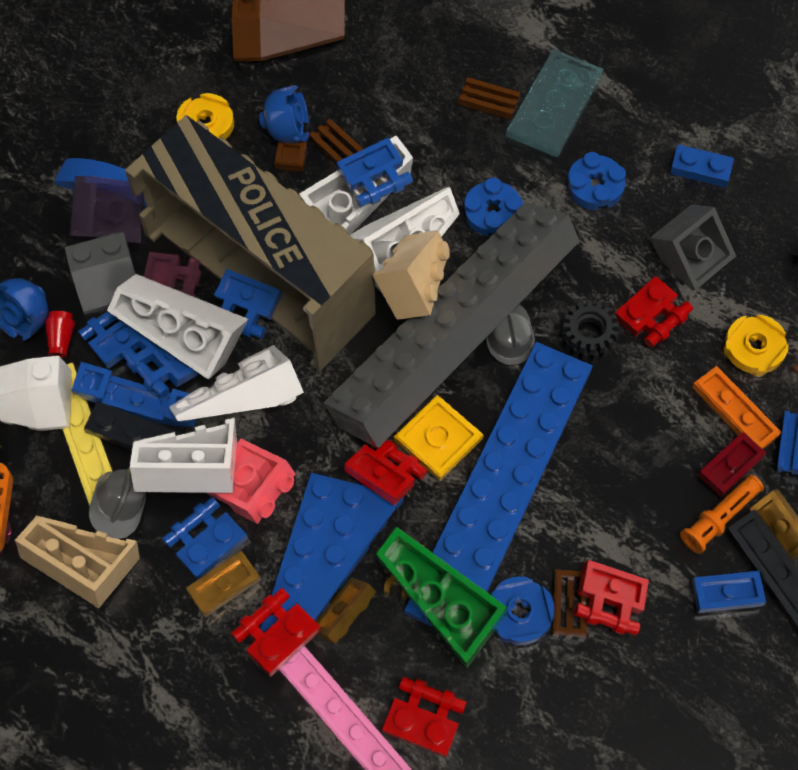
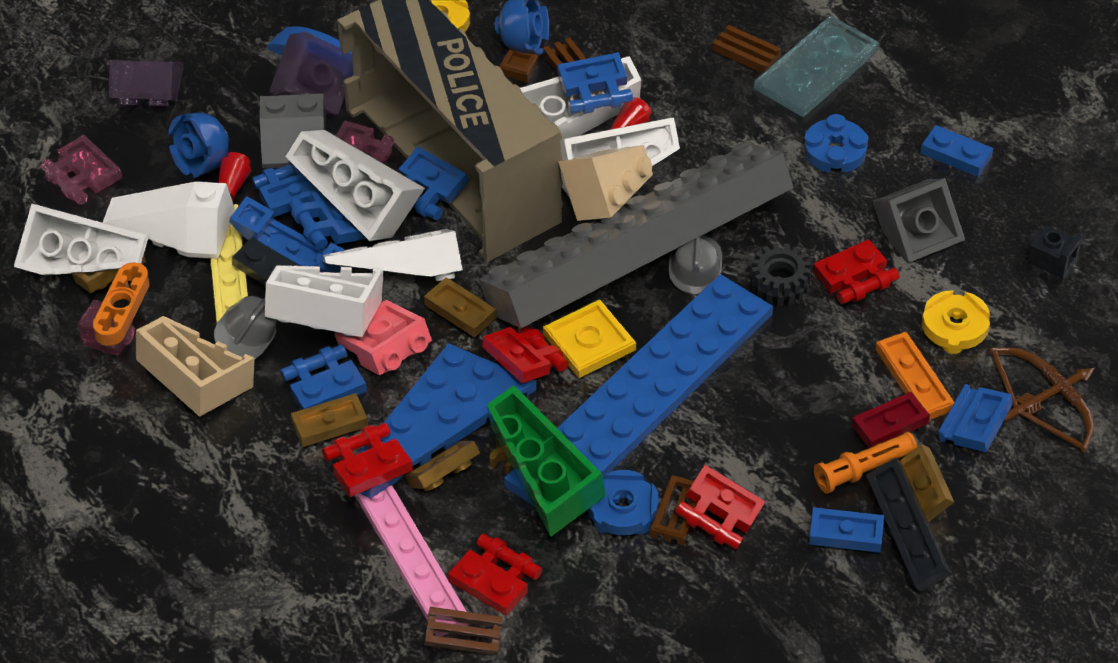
camera: 15 degrees right, 15 degrees down
(311, 430) = (460, 307): none -> pearl gold plate
(412, 193) = (632, 113): none -> red cone
(489, 193) = (711, 135): blue plate -> none

